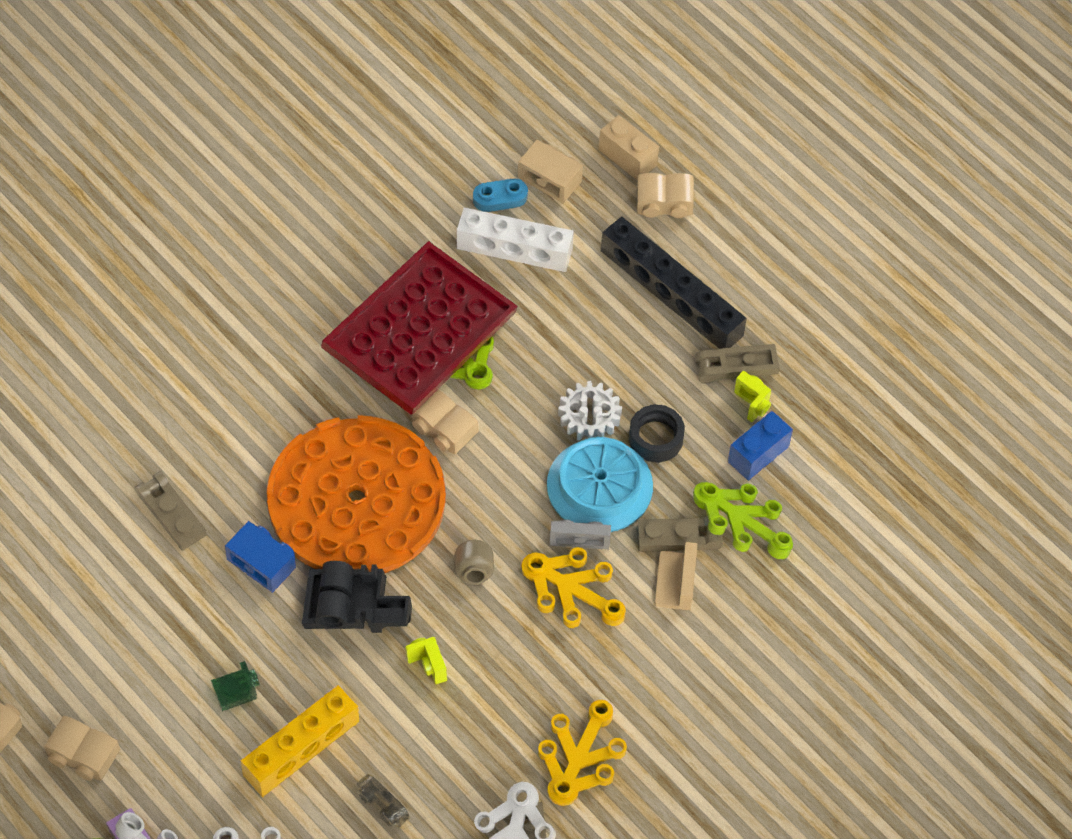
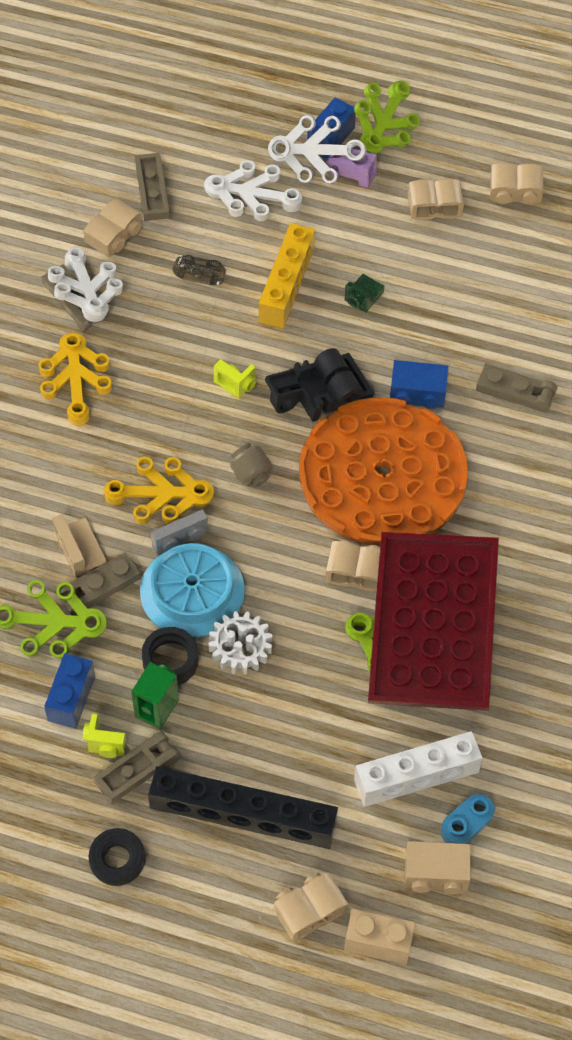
camera: 150 degrees right, 0 degrees up
(693, 392) = (155, 695): none -> green brick
(787, 323) = (121, 875): none -> black tyre

